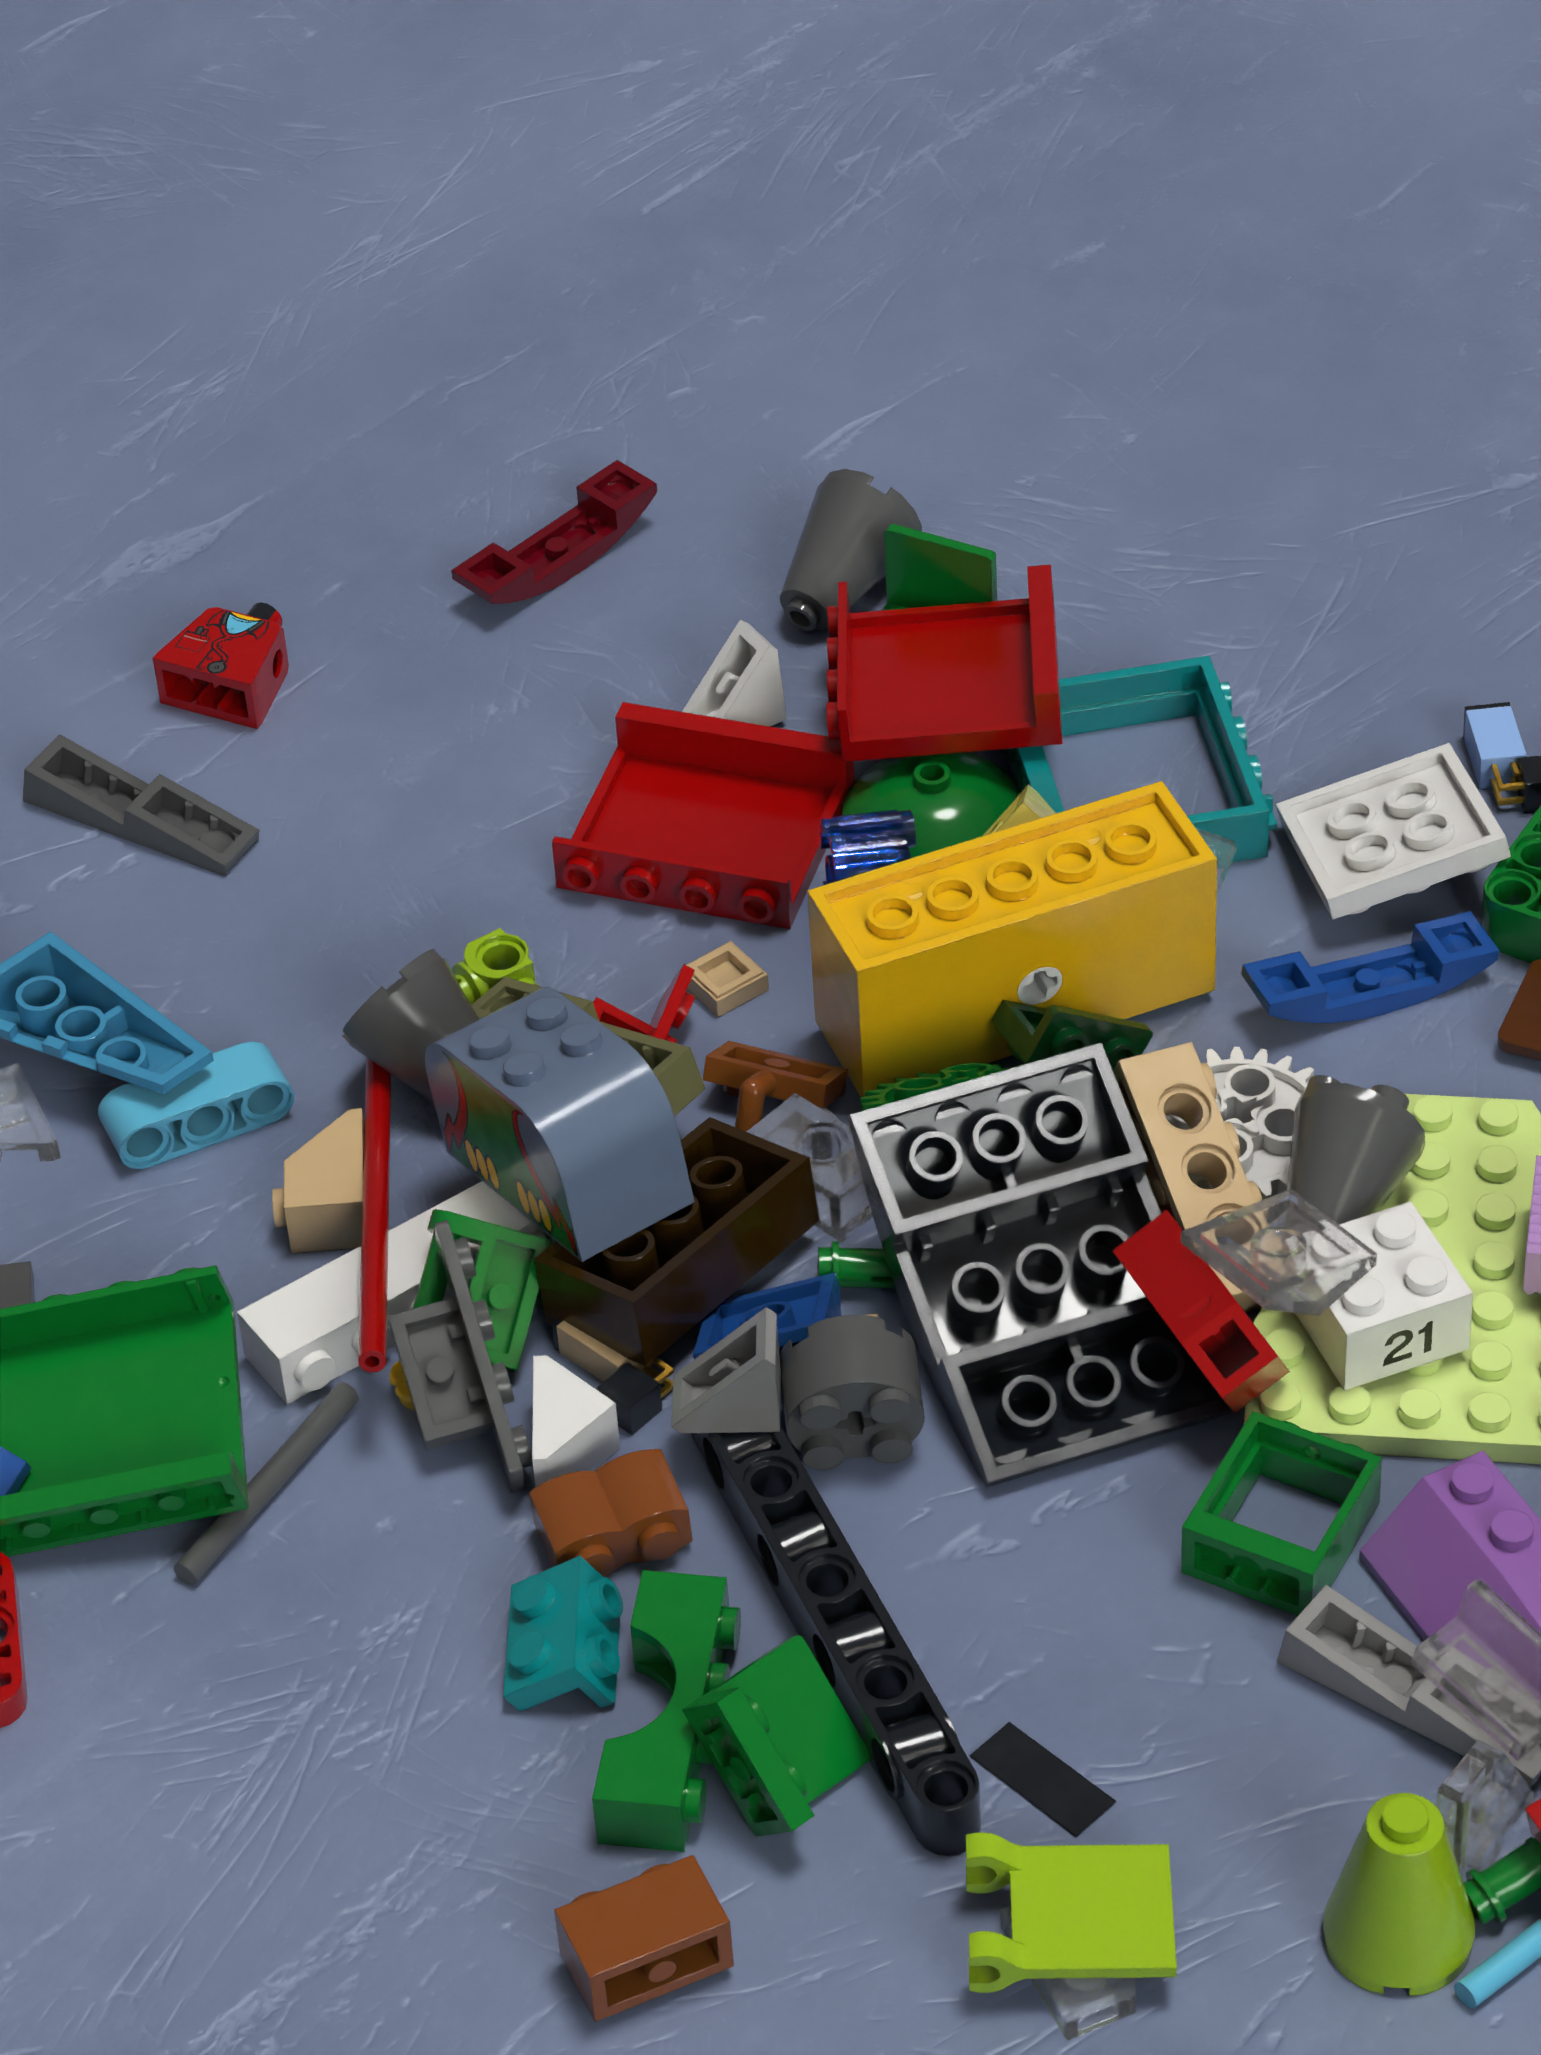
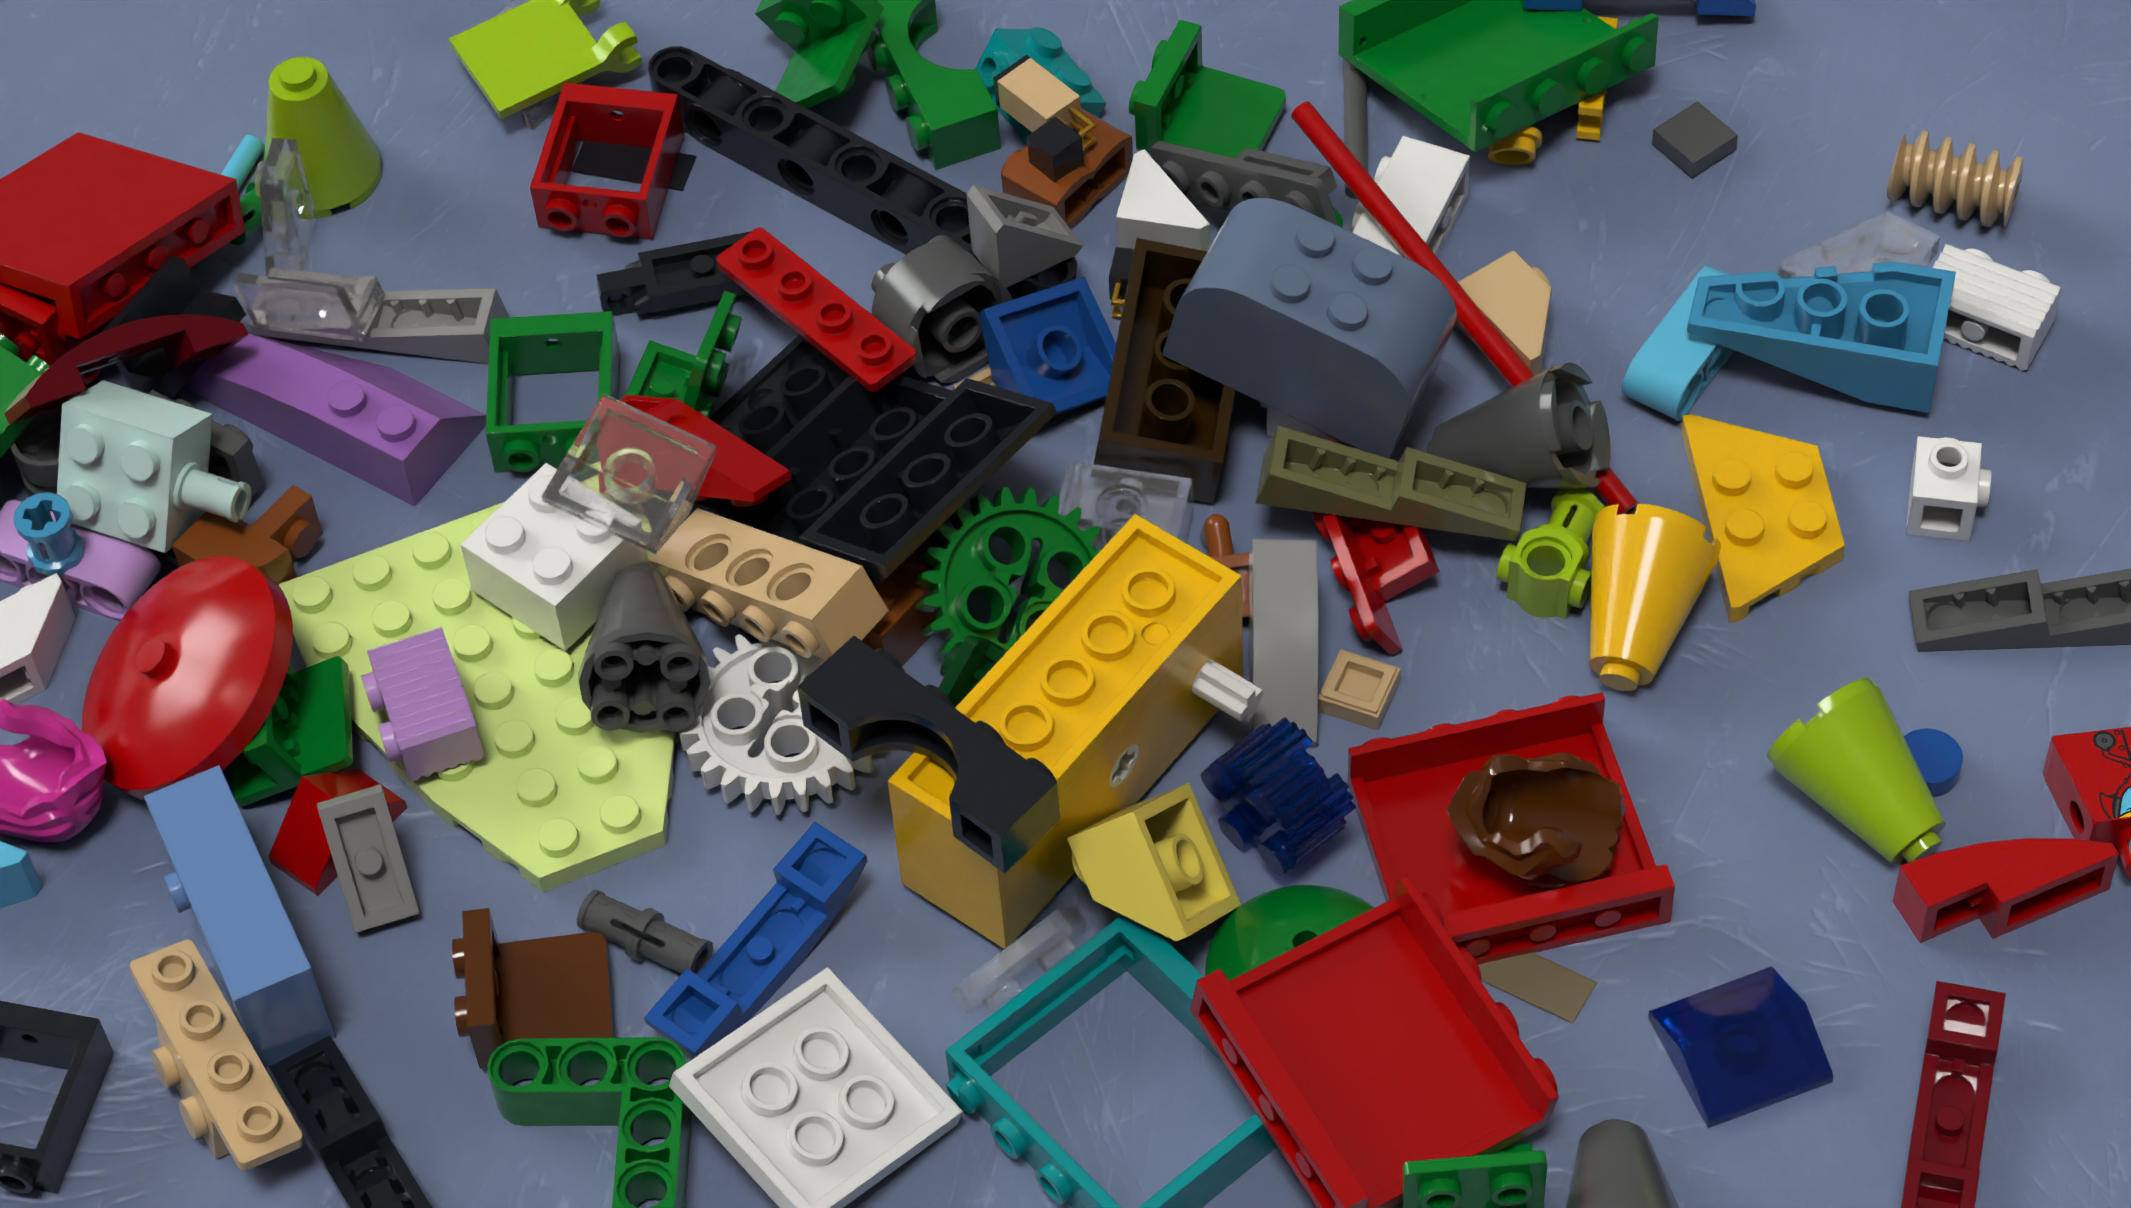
camera: 150 degrees right, 10 degrees up
(123, 906) = (1946, 488): none -> white brick
(276, 967) = (1765, 506): none -> yellow wing
(337, 753) = (1937, 758): none -> blue tile
(376, 646) = (2001, 883): none -> red slope
(406, 744) = (1862, 772): none -> lime cone
(427, 1519) = (1199, 104): none -> green bracket
(438, 908) = (1643, 588): none -> yellow cone
(599, 1511) = (1049, 112): none -> piece
(650, 651) = (1742, 1045): none -> clear blue slope
(689, 800) = (1540, 817): none -> reddish brown hair
(742, 681) = (1588, 993): white slope -> none
(754, 1006) = (1284, 632): none -> light grey slope
(855, 1266) = (1042, 450): green pin -> none
(973, 1436) = (817, 309): none -> red bracket
(1044, 1797) = (589, 115): none -> red window
(1072, 1588) = (669, 278): none -> black hinge
(1146, 1430) = (688, 377): none -> green bracket
(1198, 875) = (869, 706): none -> black arch
(1461, 1029) = (609, 918): none -> dark grey pin

